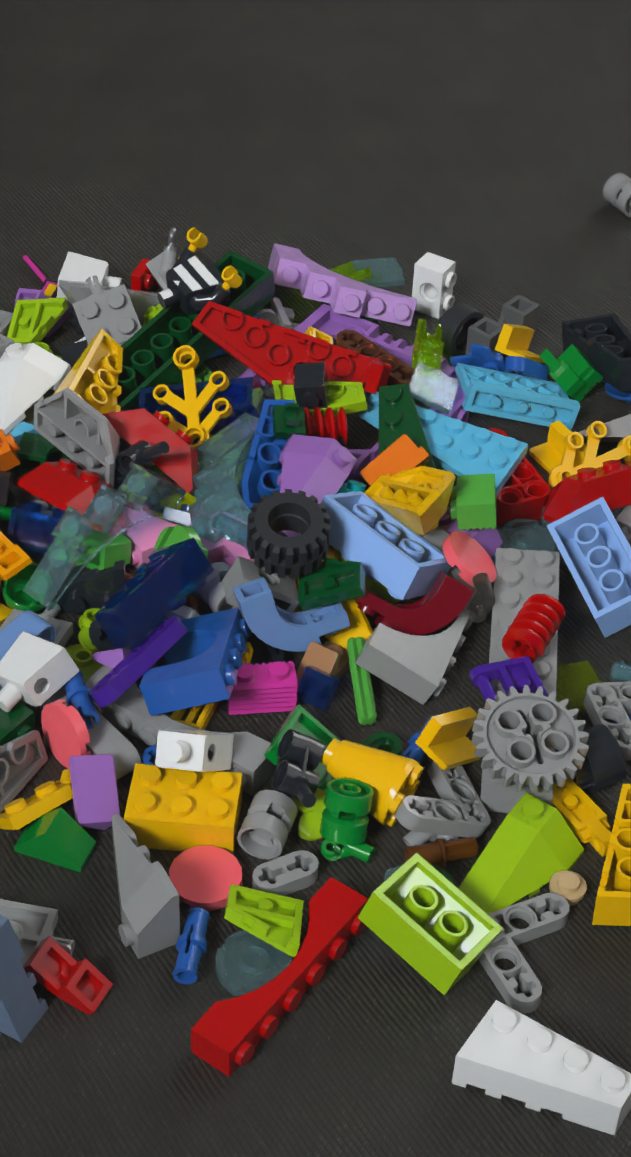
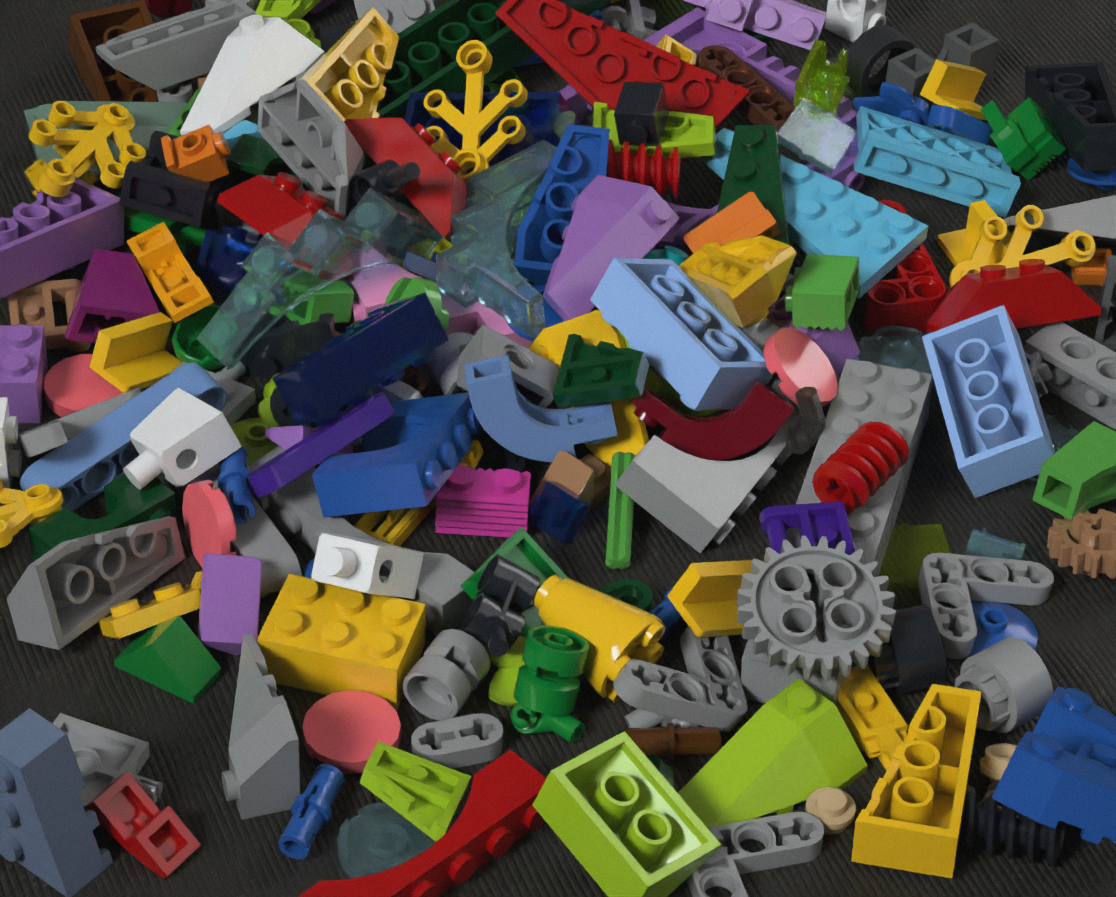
camera: 10 degrees right, 0 degrees up
(288, 420) = (595, 155): dark green tile -> none
(291, 513) = (559, 275): black tyre -> none
(377, 376) = (737, 110): red slope -> none

